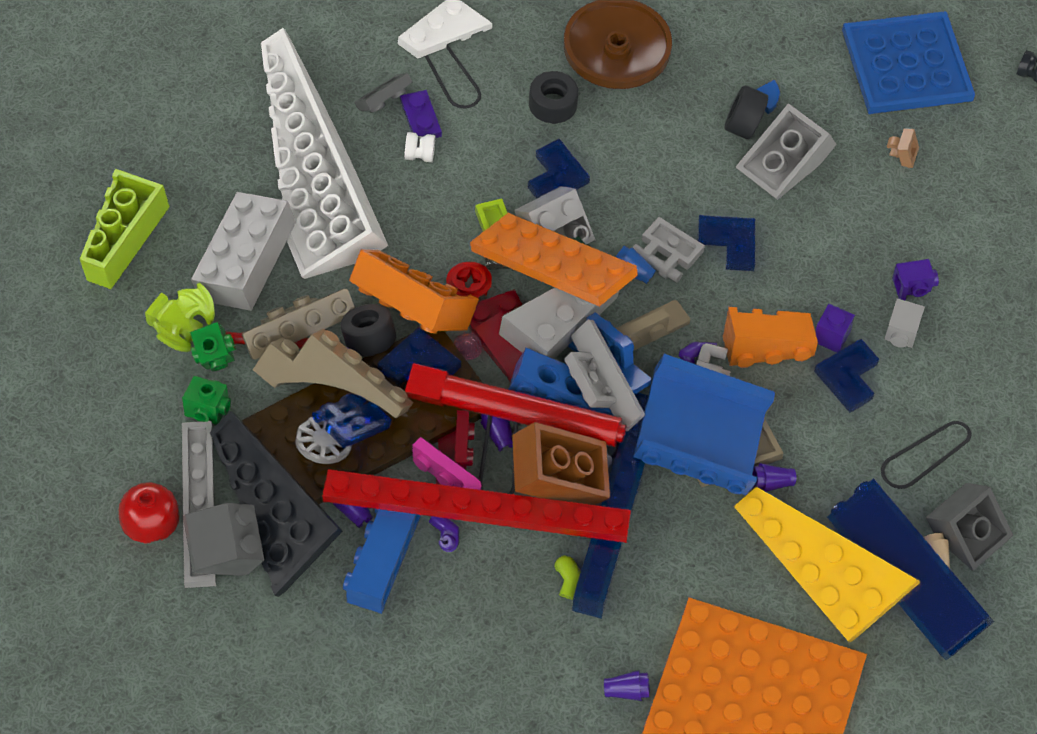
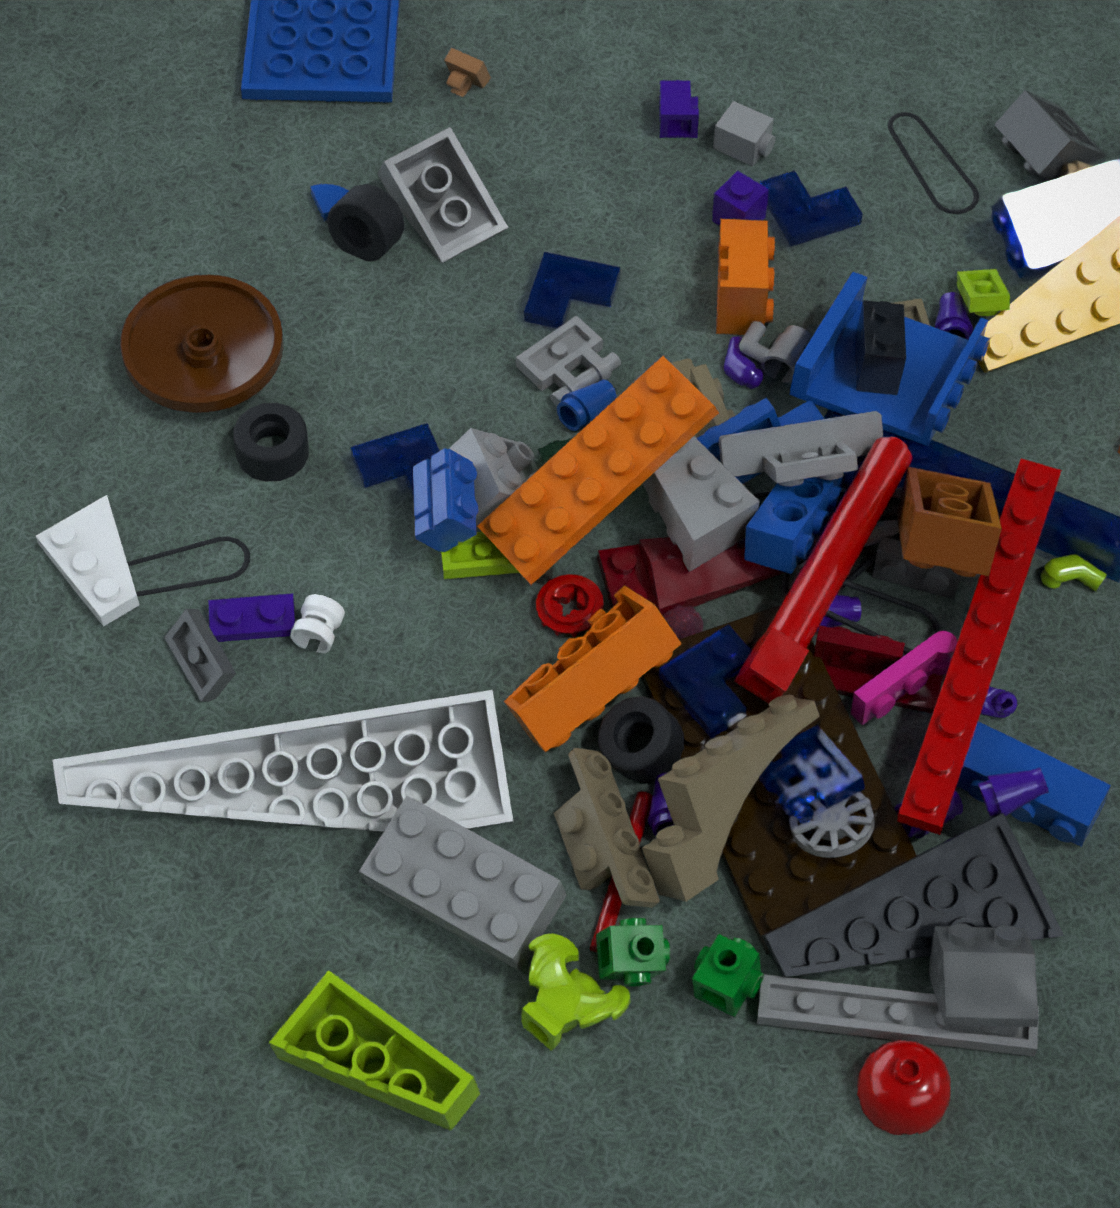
camera: 75 degrees left, 0 degrees up
(357, 532) = (1012, 790): none -> dark purple cone
(517, 187) = (444, 500): none -> blue brick
(705, 412) = (880, 347): none -> black brick
(799, 489) = (983, 291): none -> lime plate

